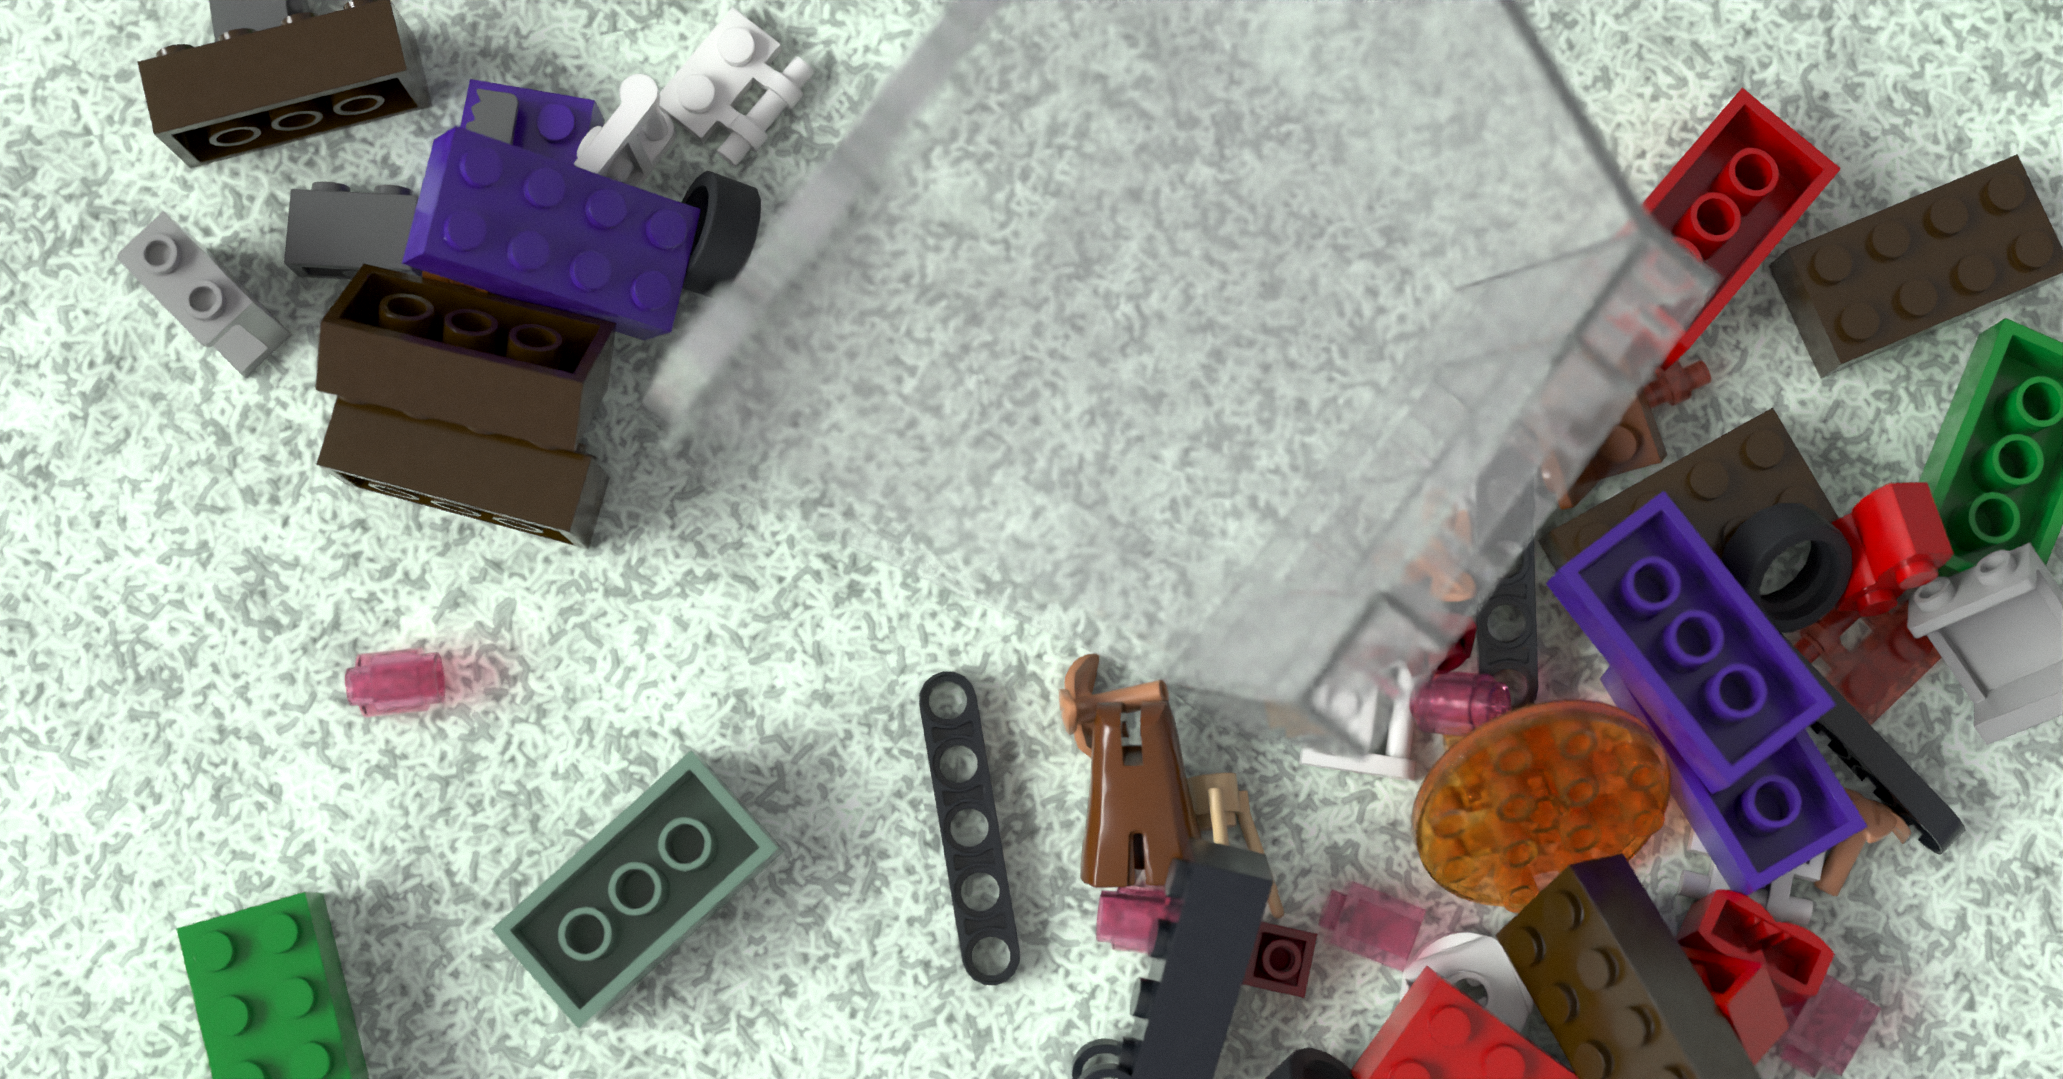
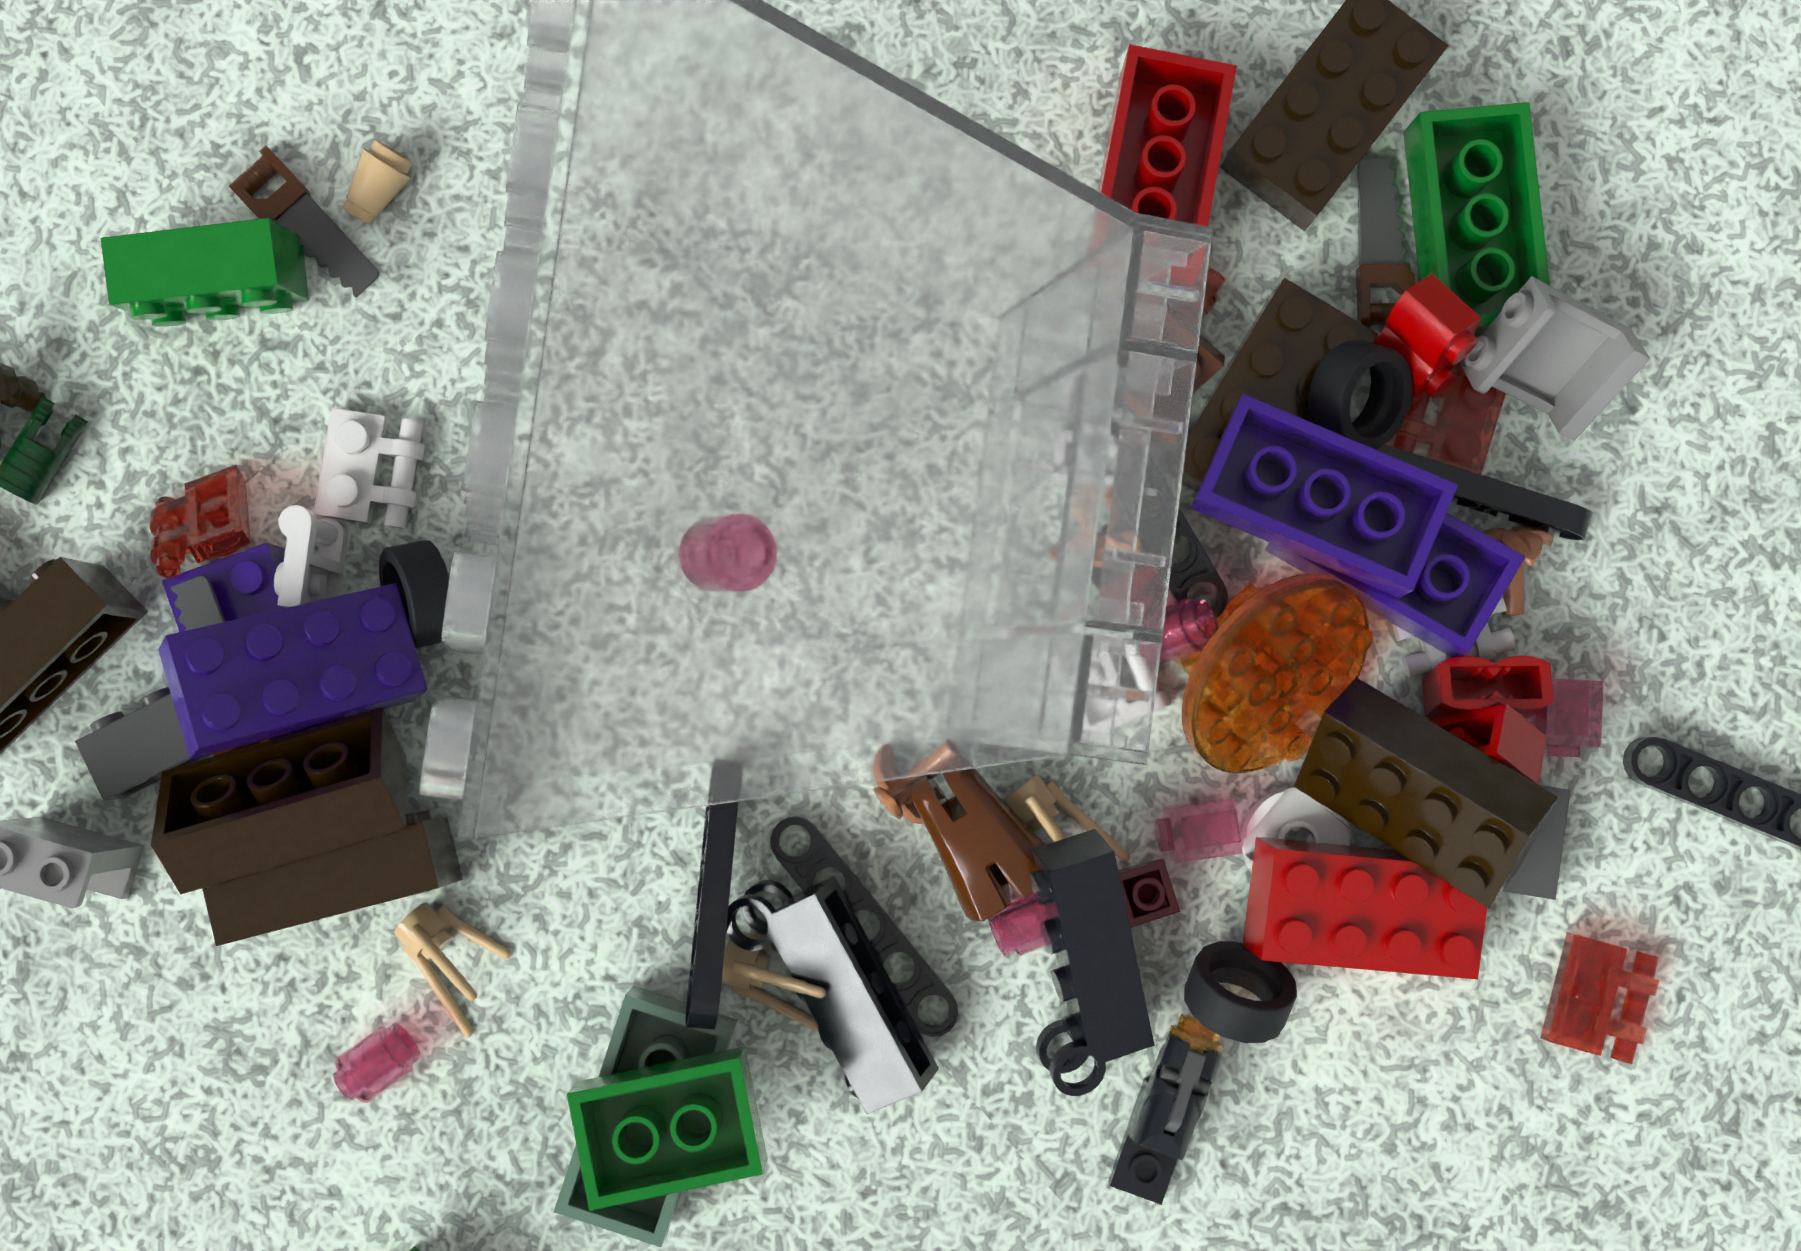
camera: 30 degrees left, 5 degrees up
(521, 585) = (426, 937): none -> tan plant
(544, 45) = (204, 522): none -> clear red plate
(659, 903) = (667, 1128): none -> green brick
(825, 800) = (750, 969): none -> tan plant
(836, 702) = (711, 916): none -> black beam
(913, 874) = (861, 1009): none -> hinge
(1106, 303) = (749, 547): none -> clear pink brick
(1895, 425) = (1379, 239): none -> dark grey piece

